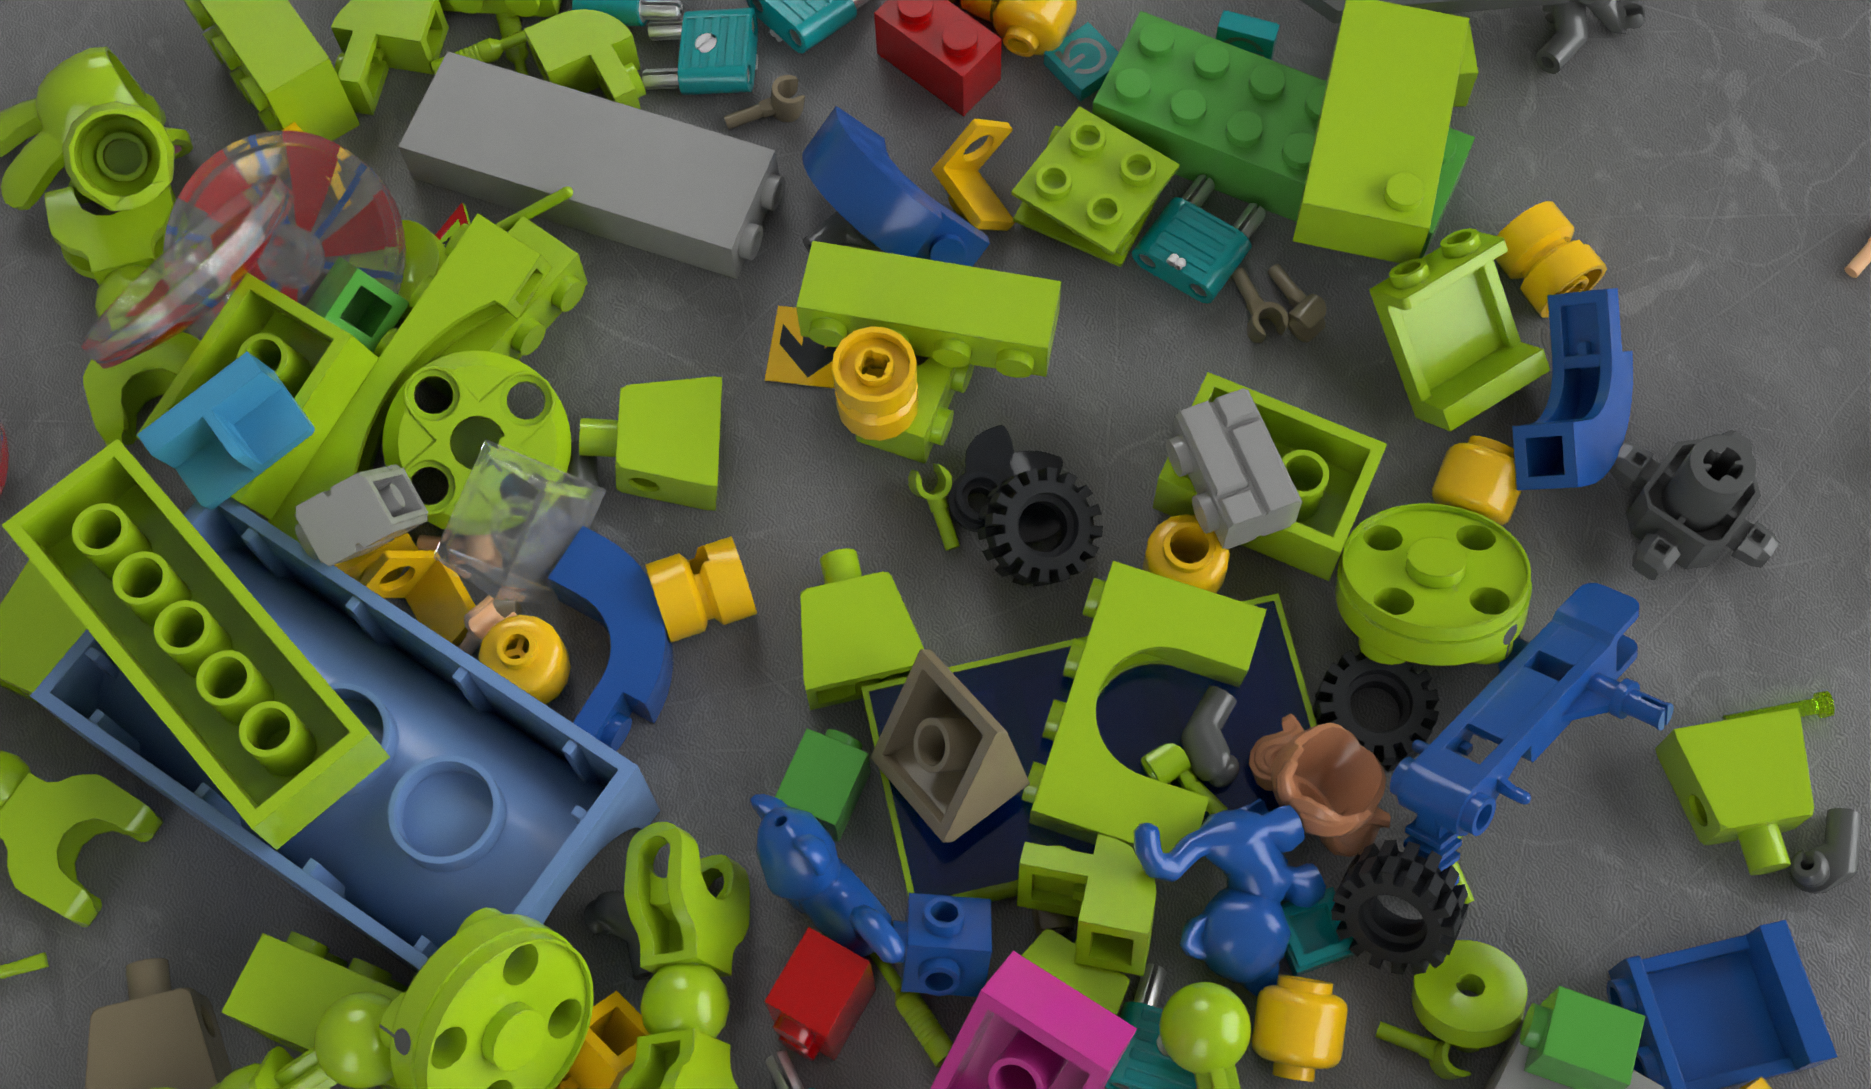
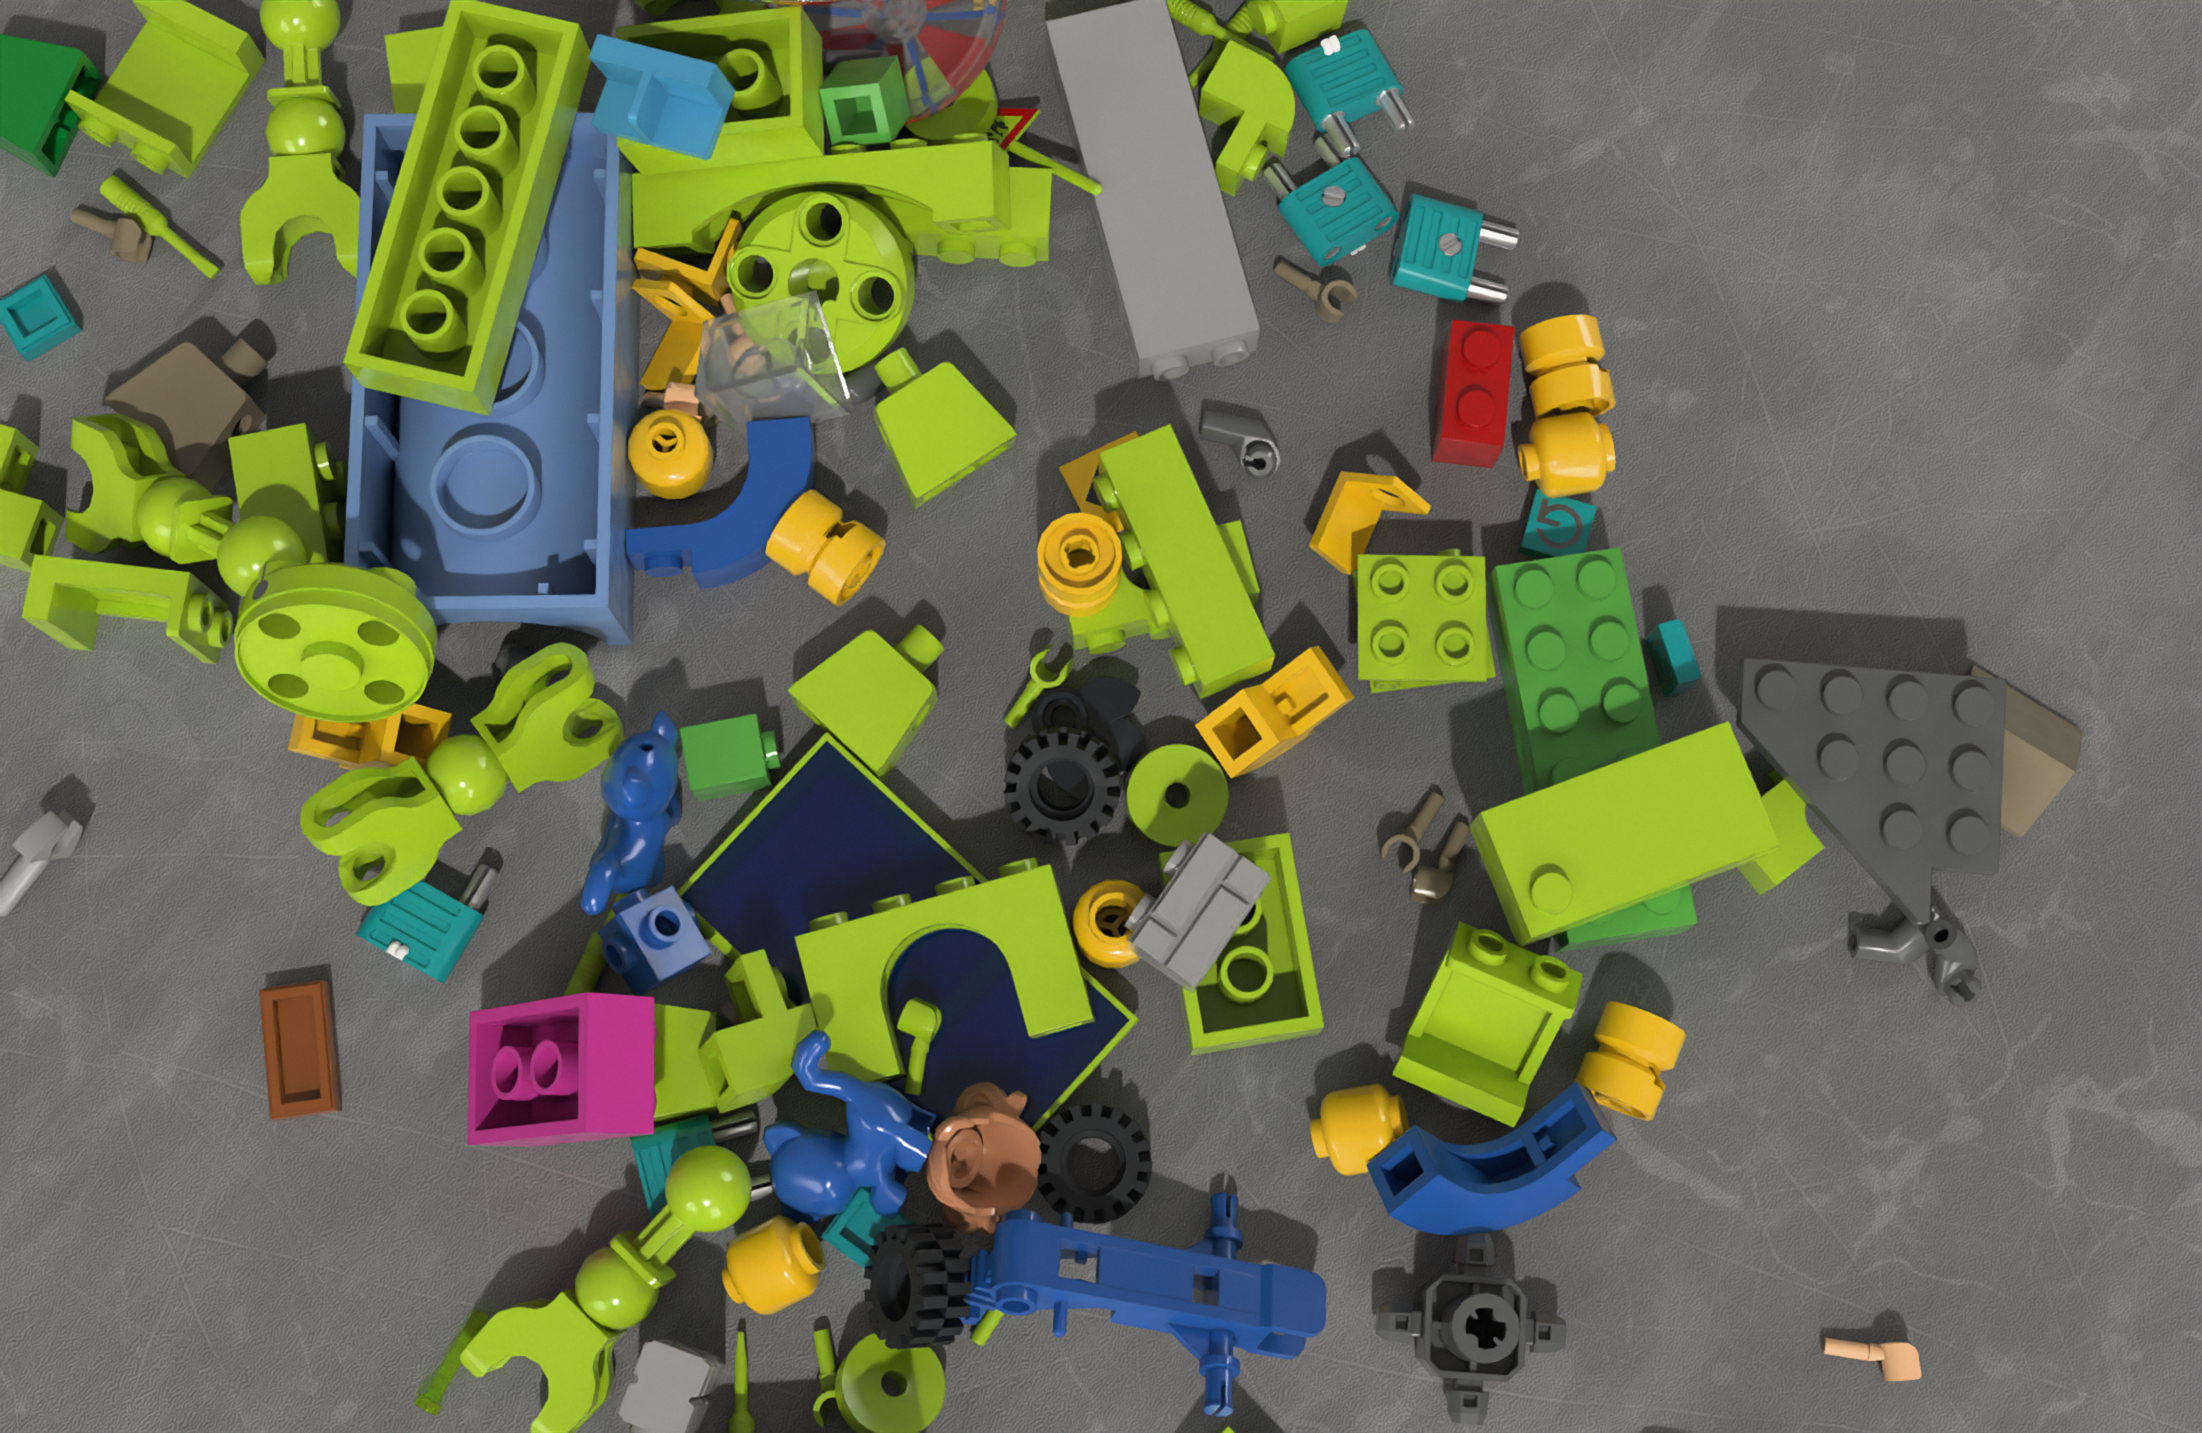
camera: 50 degrees right, 10 degrees up
(359, 515) = (676, 245): light grey brick -> none
(820, 996) = (539, 870): red brick -> none
(879, 201) = (1268, 449): blue arch -> none
(947, 751) = (800, 838): dark tan slope -> none
(1095, 330) = (1275, 715): none -> yellow brick
(1123, 437) = (1147, 787): none -> lime piece
(1195, 247) = (1432, 743): teal piece -> none
(1205, 742) = (960, 1038): dark grey arm -> none
(1433, 586) = (1224, 1145): lime piece -> none

